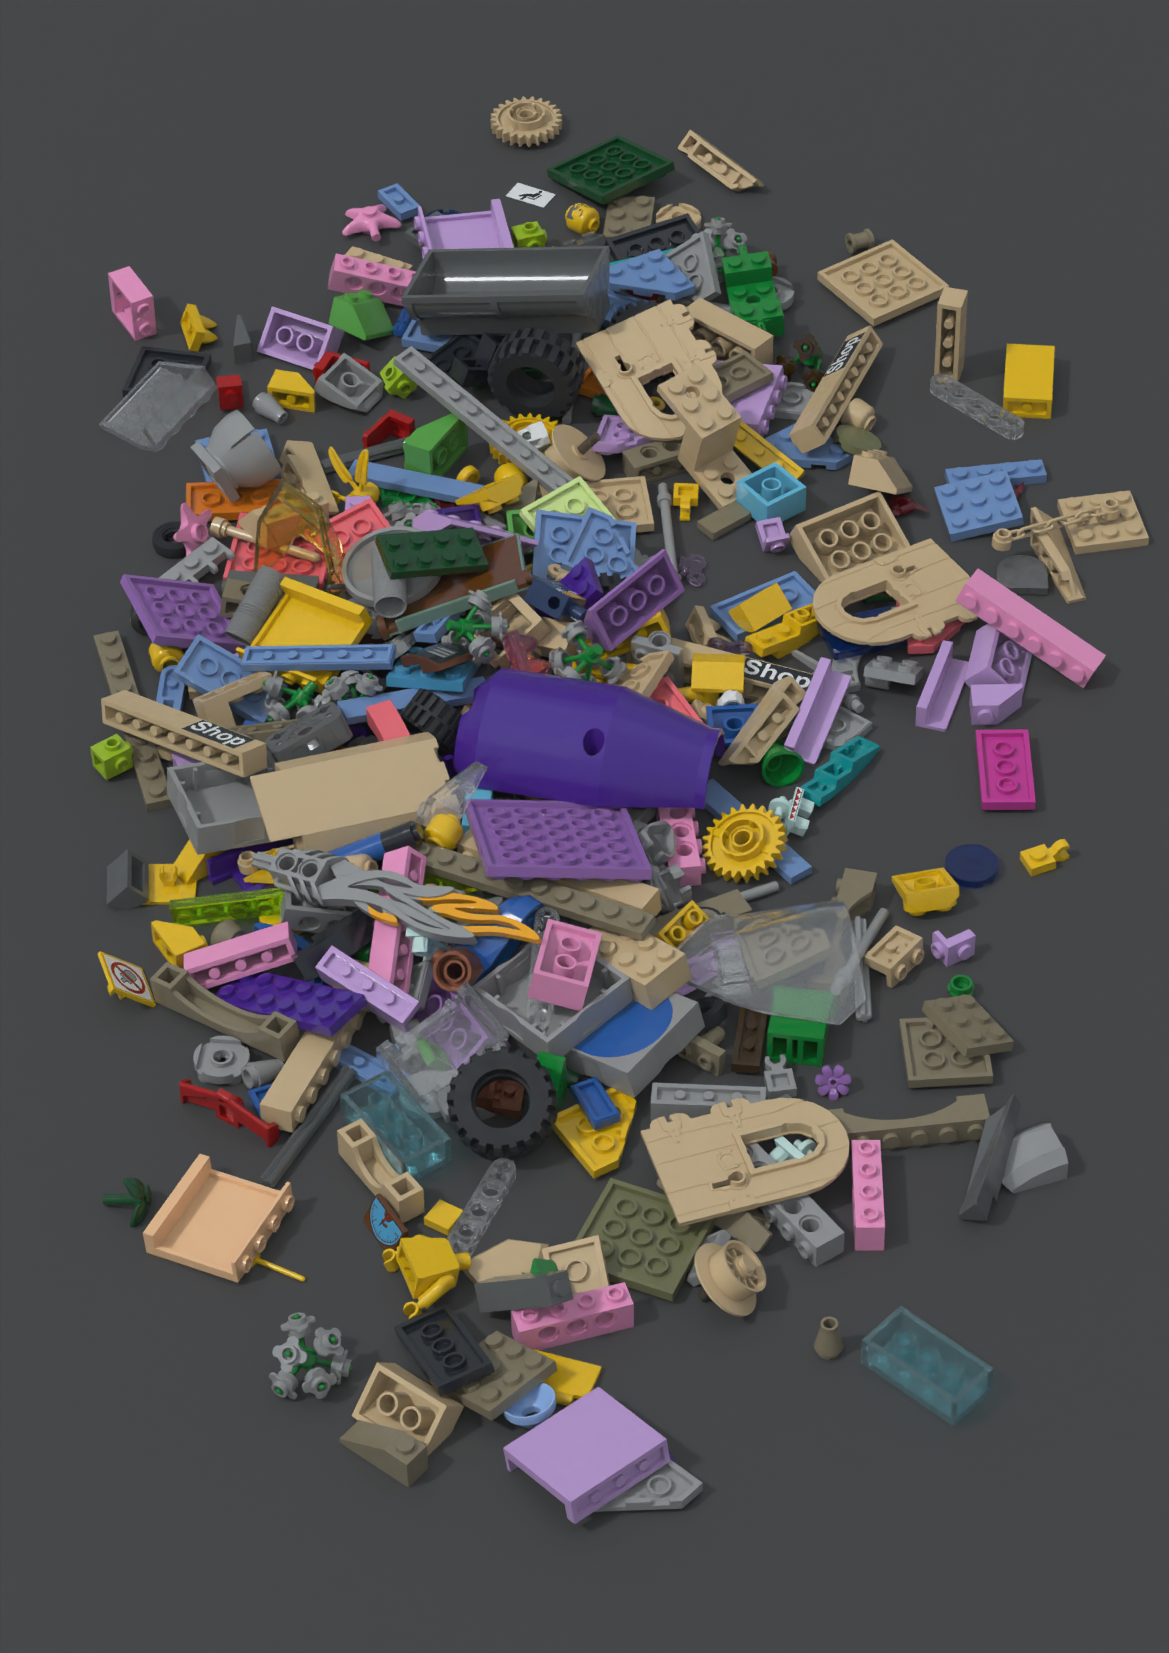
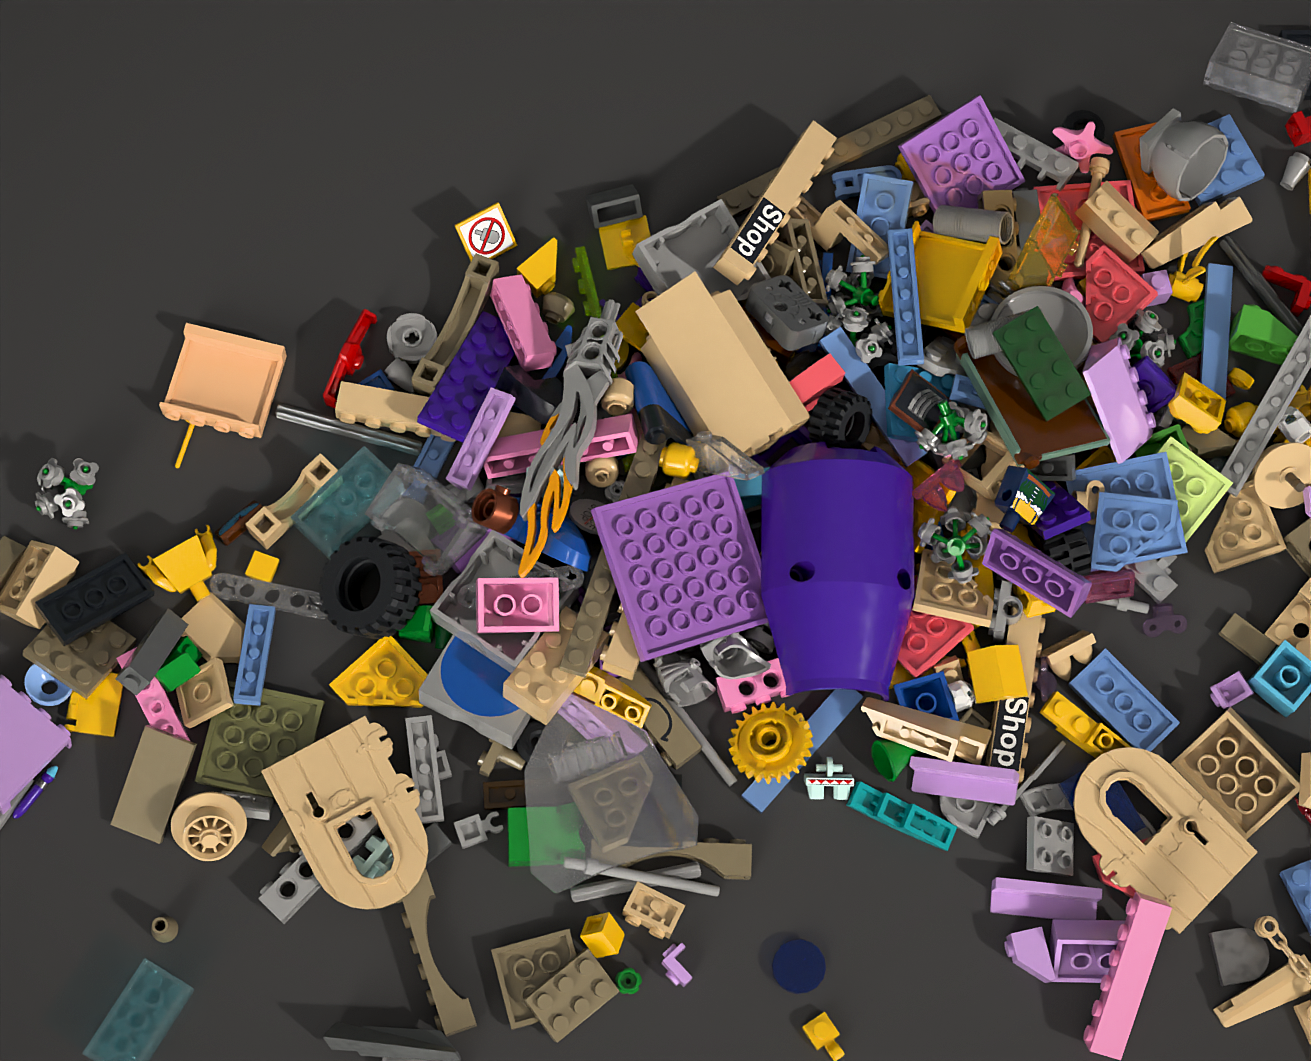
camera: 70 degrees right, 30 degrees up
(112, 756) = (765, 151): lime brick -> none
(137, 1196) = (233, 307): dark green plant -> none
(543, 1224) = (254, 655): none -> medium blue plate
(595, 1103) = (406, 669): blue tile -> none
(664, 502) = (1257, 575): light grey bar -> none
(669, 1321) = (153, 784): none -> dark tan tile
(685, 496) = (1268, 593): yellow plate -> none
(760, 609) = (1103, 698): yellow brick -> none
(833, 1081) = (481, 879): medium lavender plant -> none
(867, 1195) = (340, 934): bright pink brick -> none
(909, 996) = (602, 935): none -> yellow panel
(926, 891) = (749, 926): yellow slope -> none
(1005, 769) = (939, 979): dark pink plate -> none

